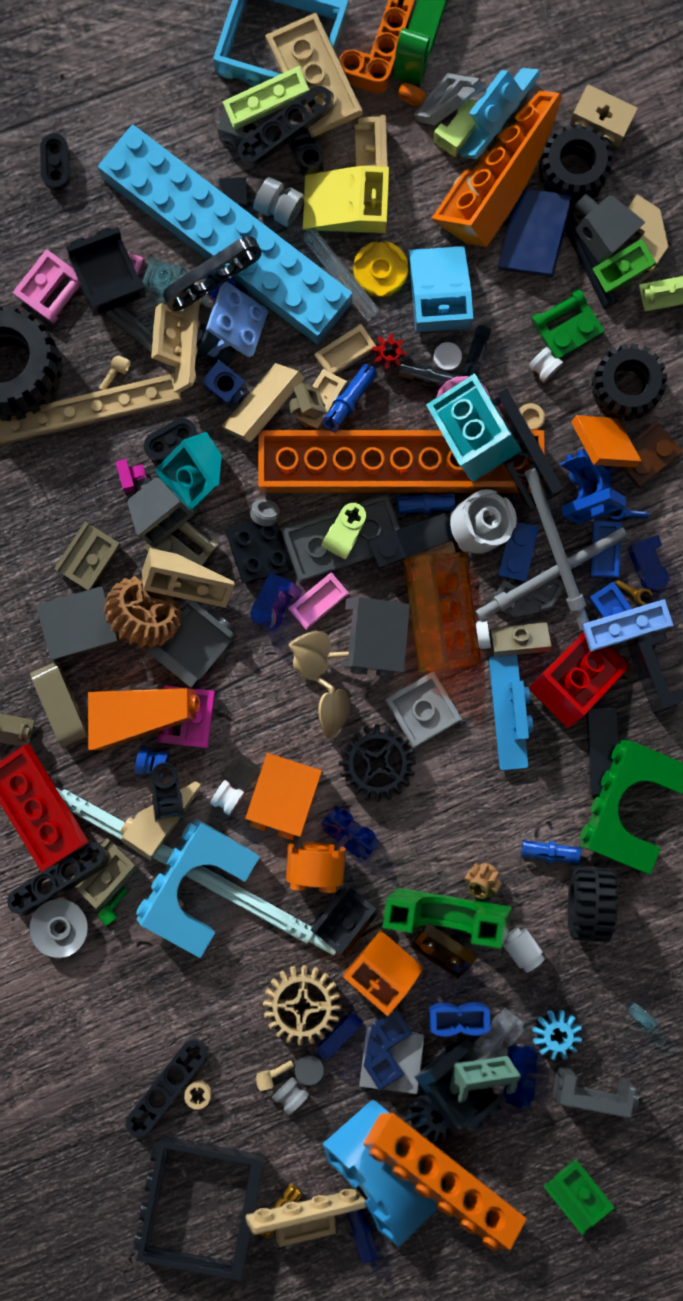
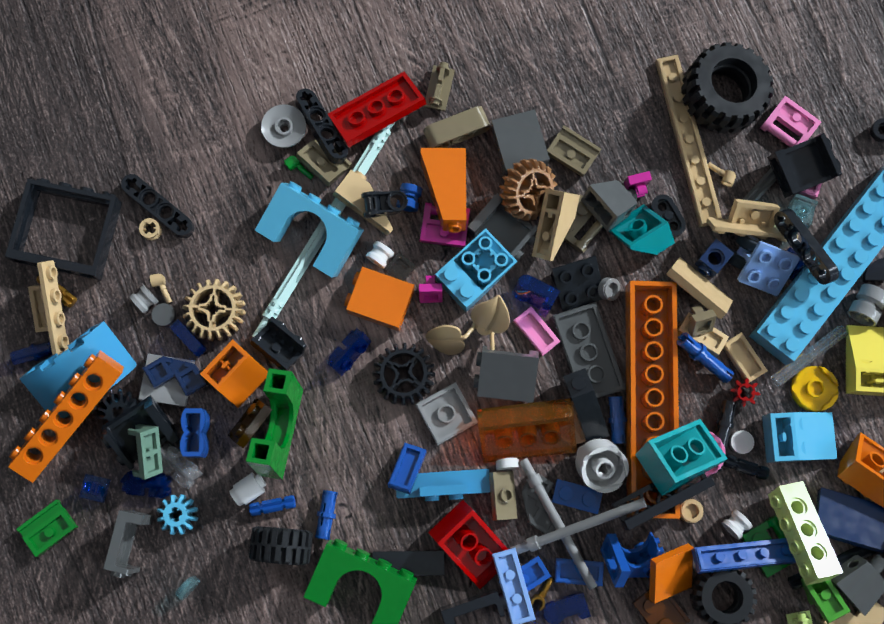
camera: 90 degrees right, 5 degrees down
(245, 676) = (475, 270): none -> medium azure slope
(272, 732) = (431, 291): none -> dark pink tile
(315, 866) = (322, 321): orange brick -> none
(342, 534) = (590, 348): yellowish green piece -> none
(483, 881) = (305, 457): medium nougat gear -> none
(492, 755) = (407, 468): none -> blue tile
(527, 1141) = (95, 488): none -> clear blue tile
(541, 918) = (272, 505): none -> blue axle
(560, 275) = (804, 533): none -> yellowish green brick
(580, 338) = (742, 555): none -> blue tile
(629, 513) = (609, 591): blue hand -> none

